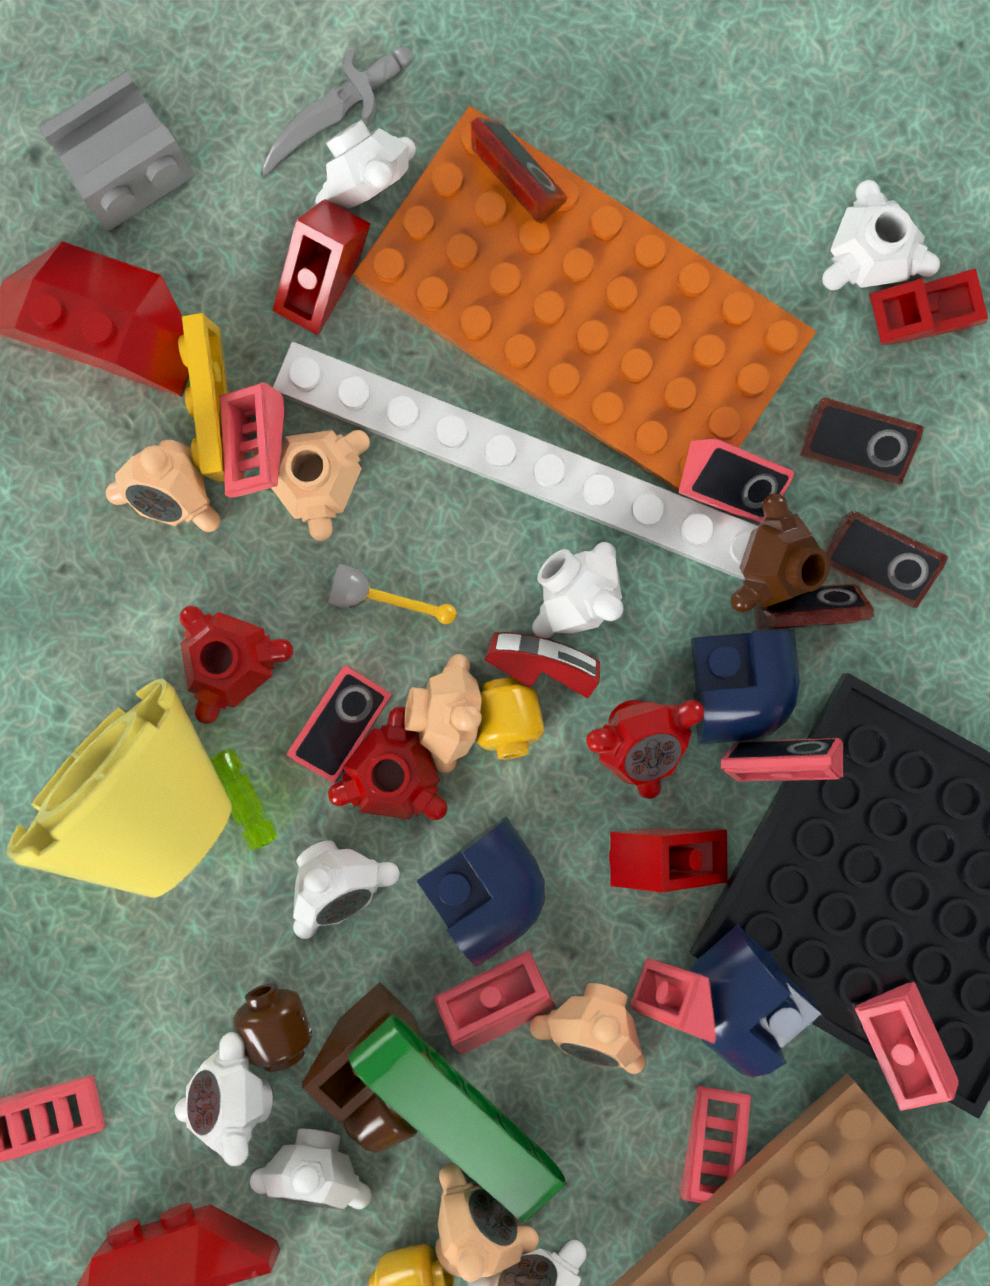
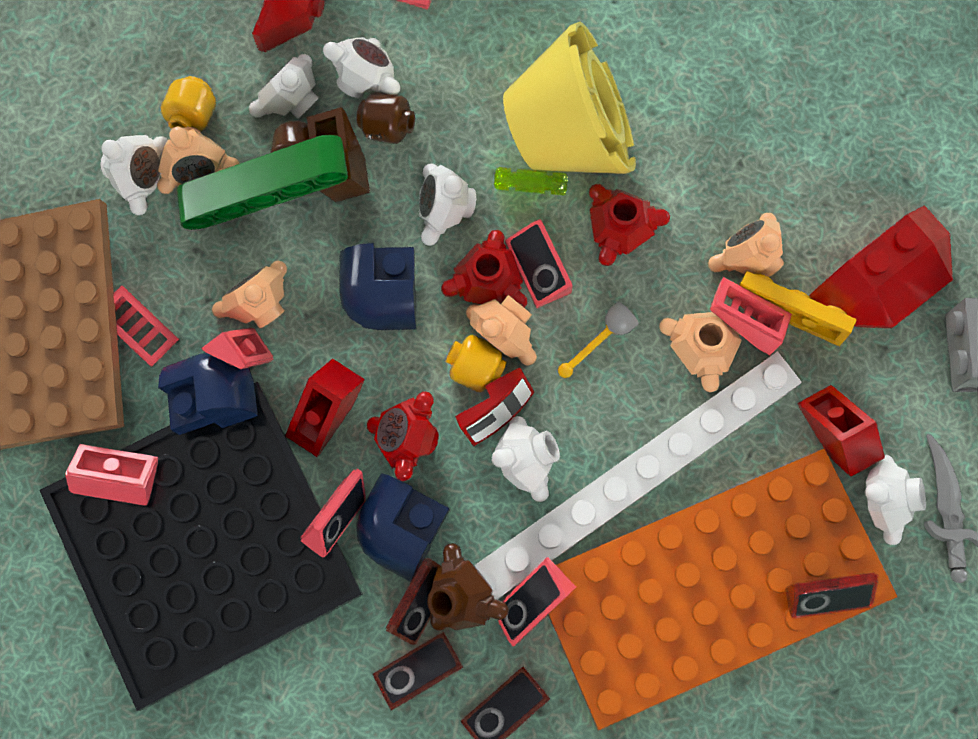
camera: 125 degrees right, 10 degrees down
(494, 1003) = (311, 251): coral slope -> none

